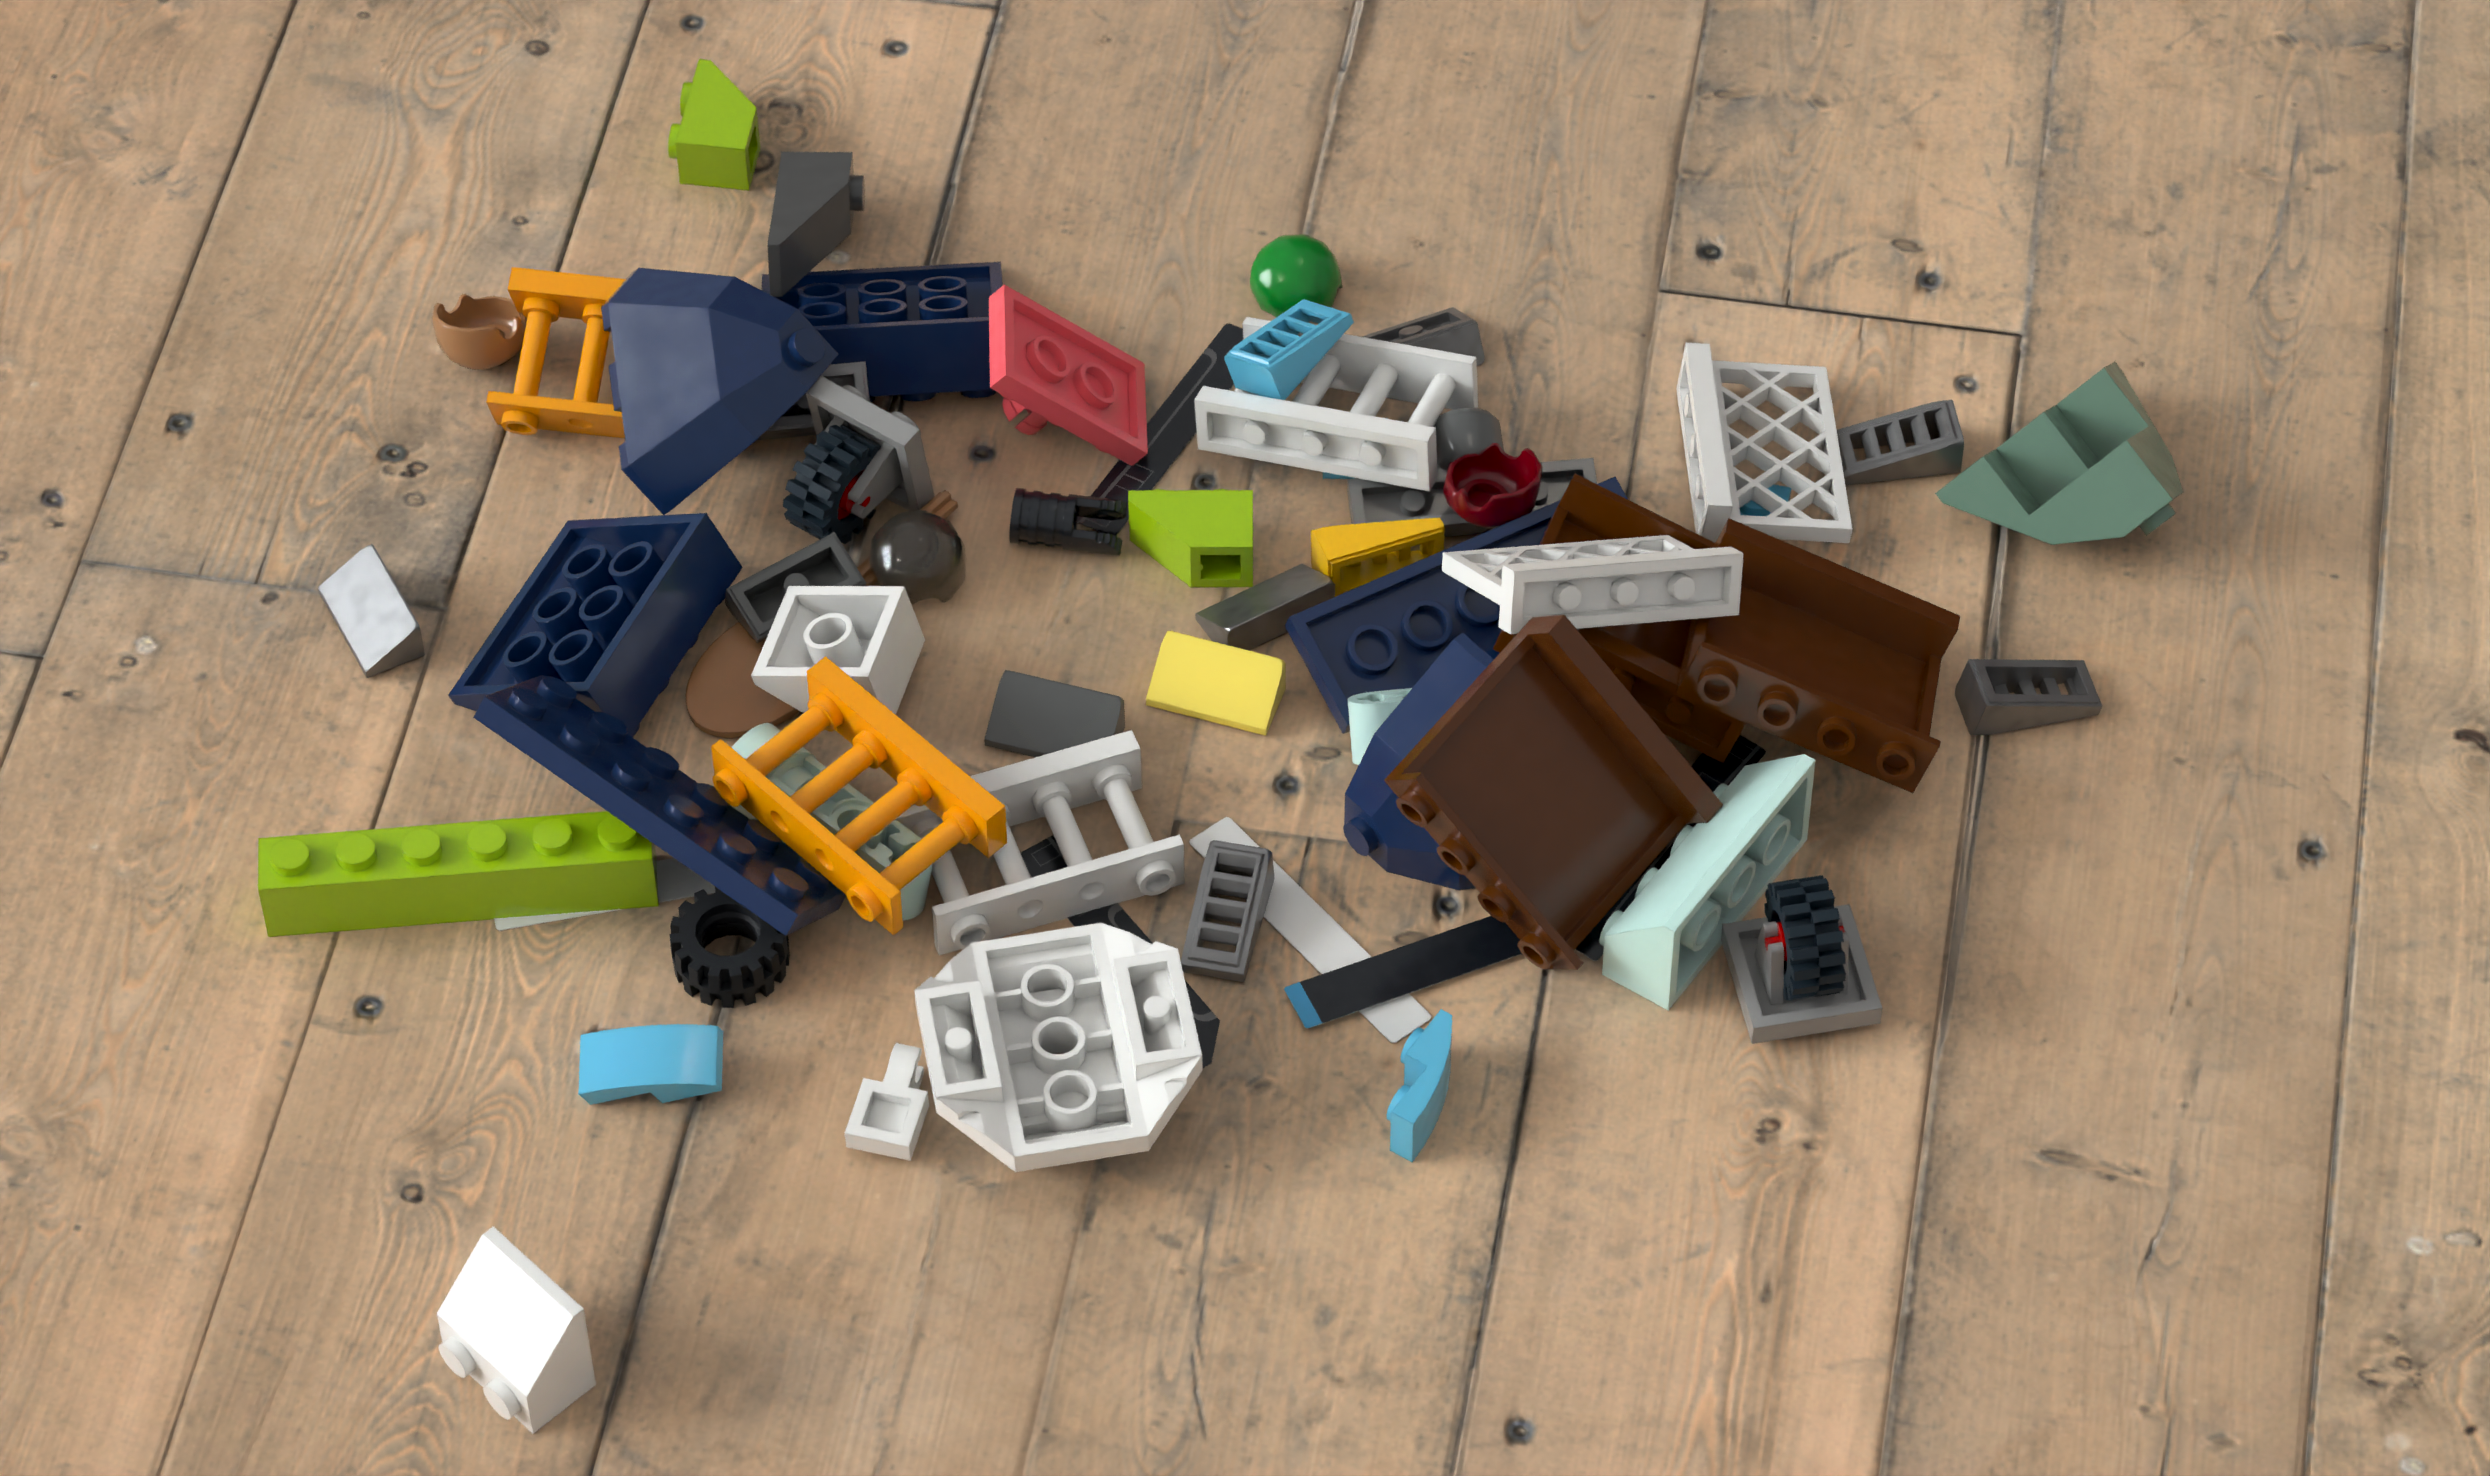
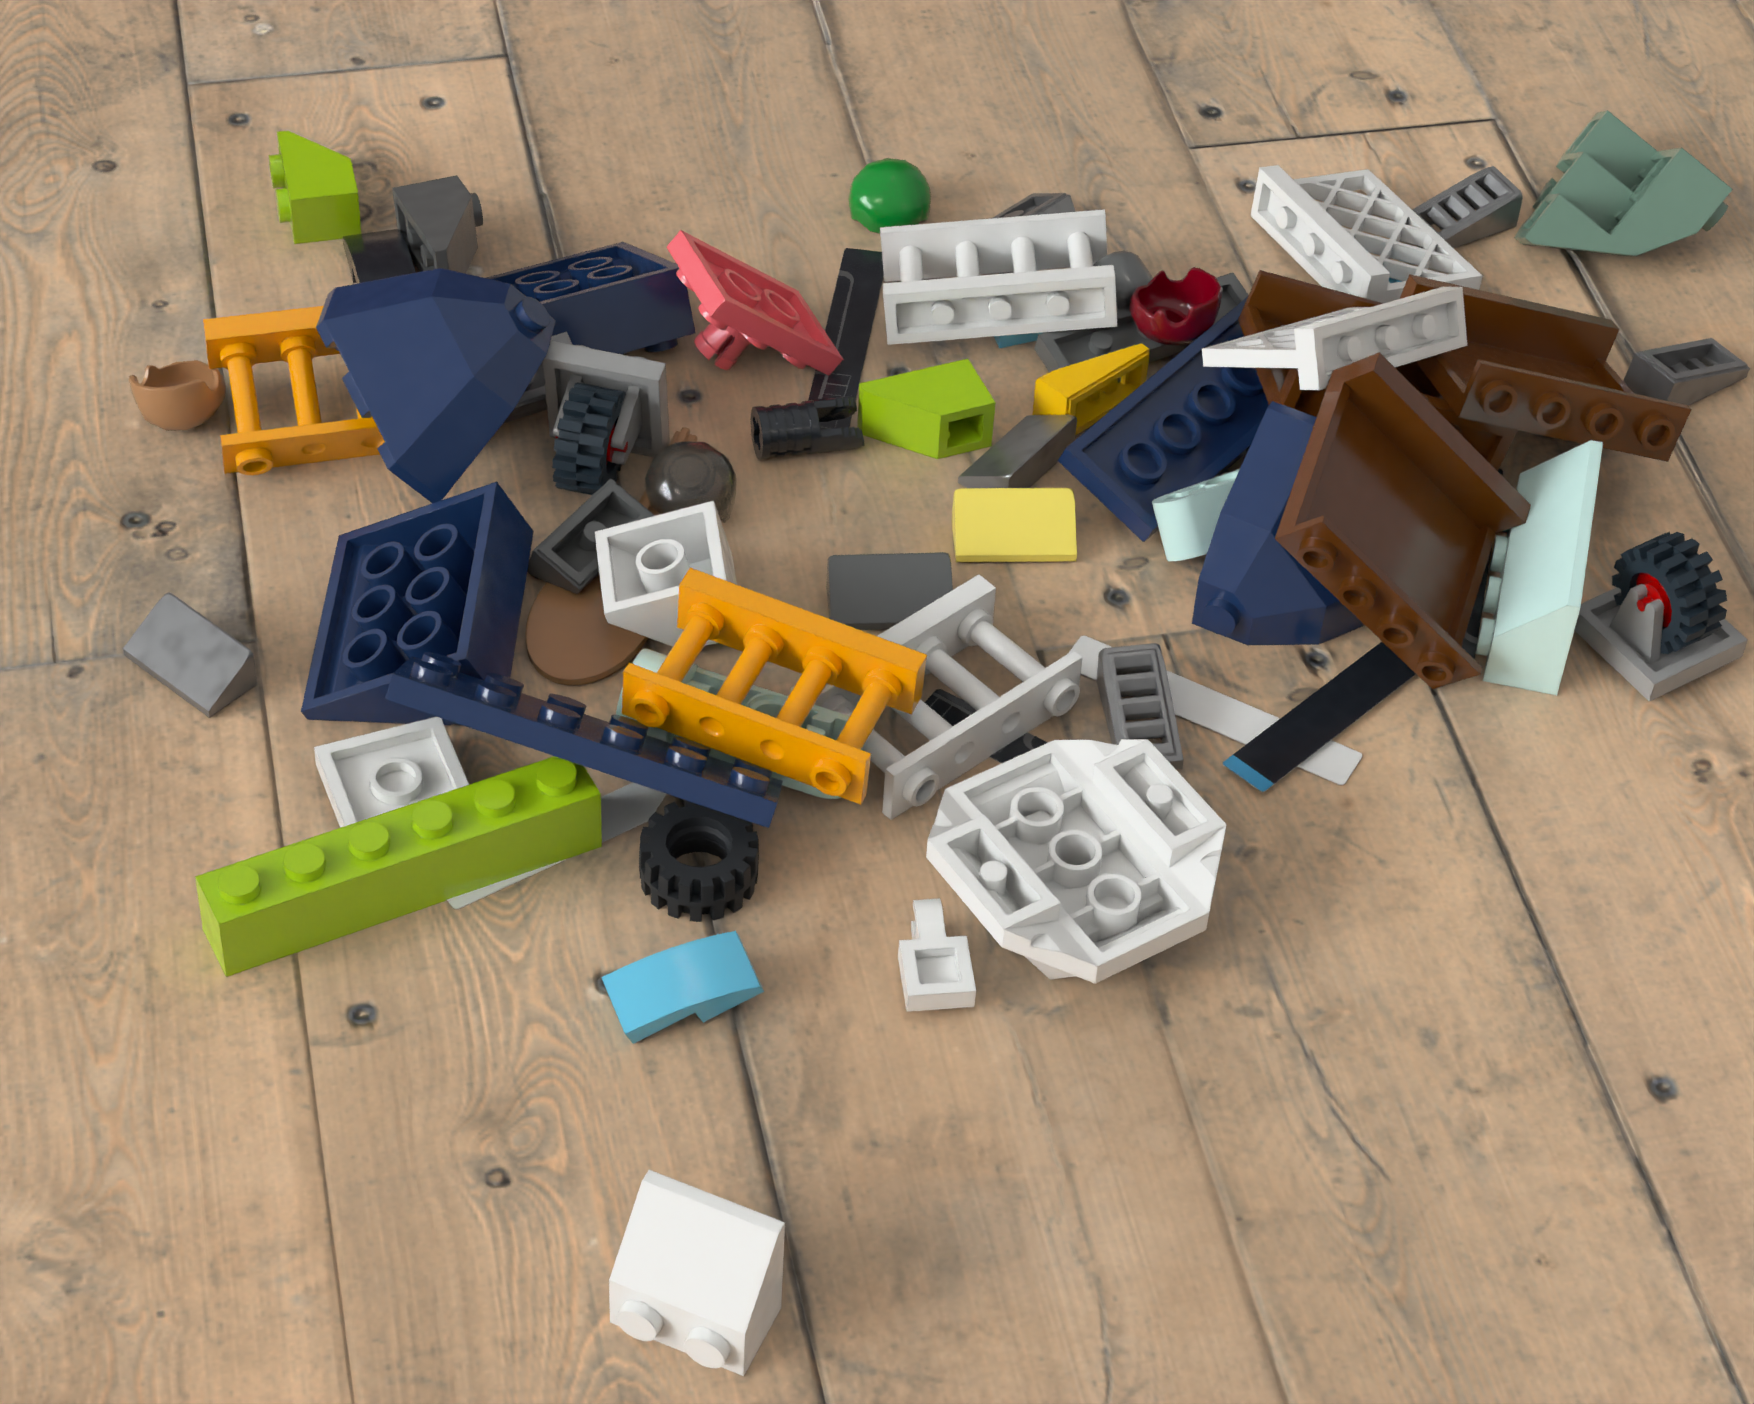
camera: 25 degrees left, 5 degrees down
(487, 781) = (388, 769): none -> white plate
(739, 234) = (377, 255): none -> black slope
(1277, 358) = (940, 238): medium azure slope -> none
(1425, 1087) = (1405, 807): medium azure slope -> none

